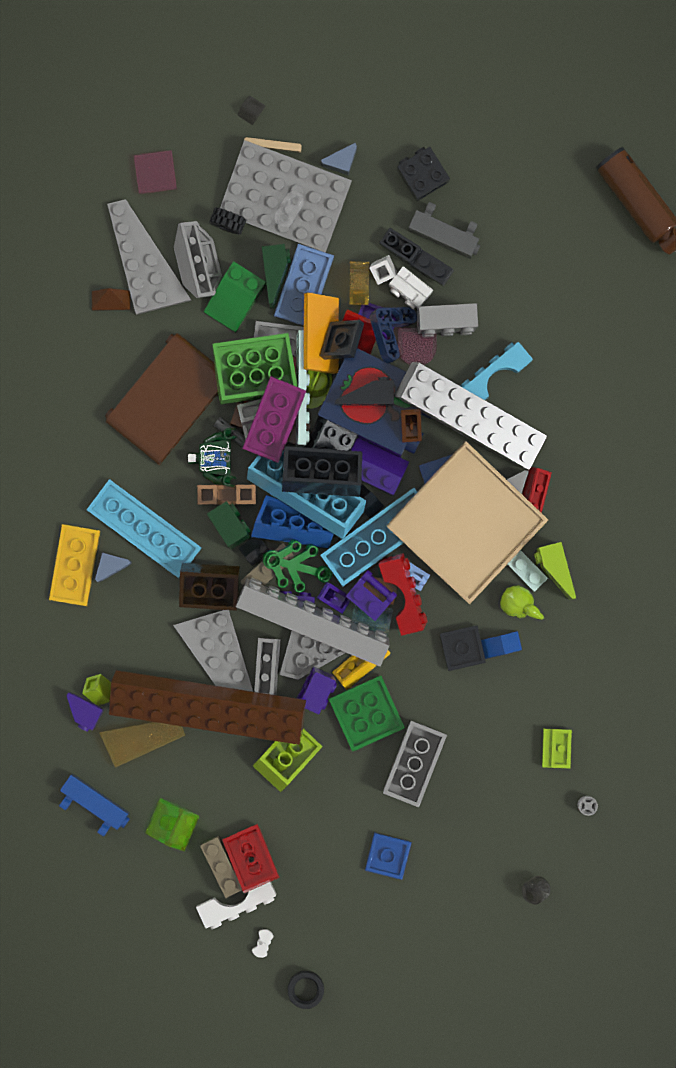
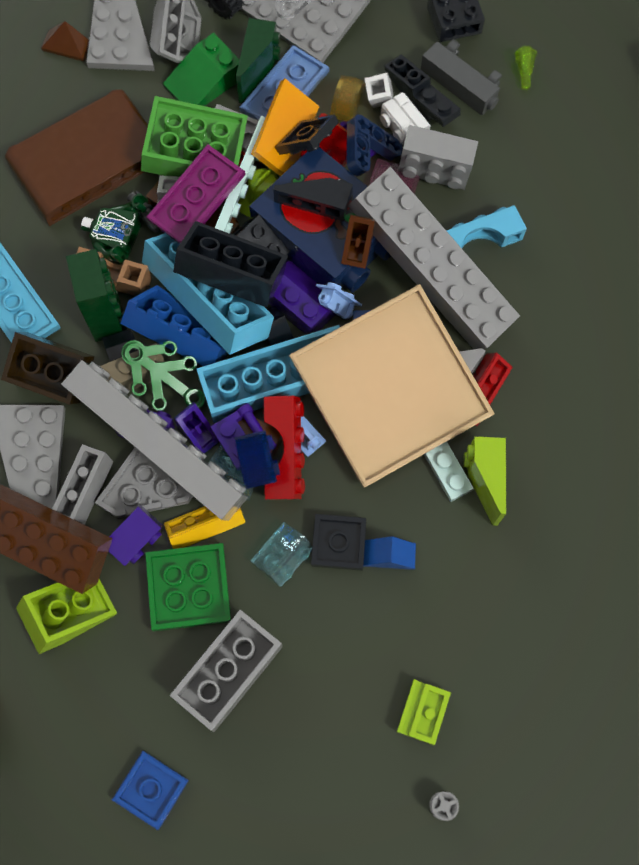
camera: 15 degrees right, 15 degrees down
(388, 613) = (256, 459): none -> clear blue brick
(406, 465) = (337, 300): none -> light blue hinge
(425, 669) = (282, 554): none -> clear light blue bracket
(492, 200) = (525, 60): none -> clear neon green cone
(519, 602) = (429, 506): lime hair -> none

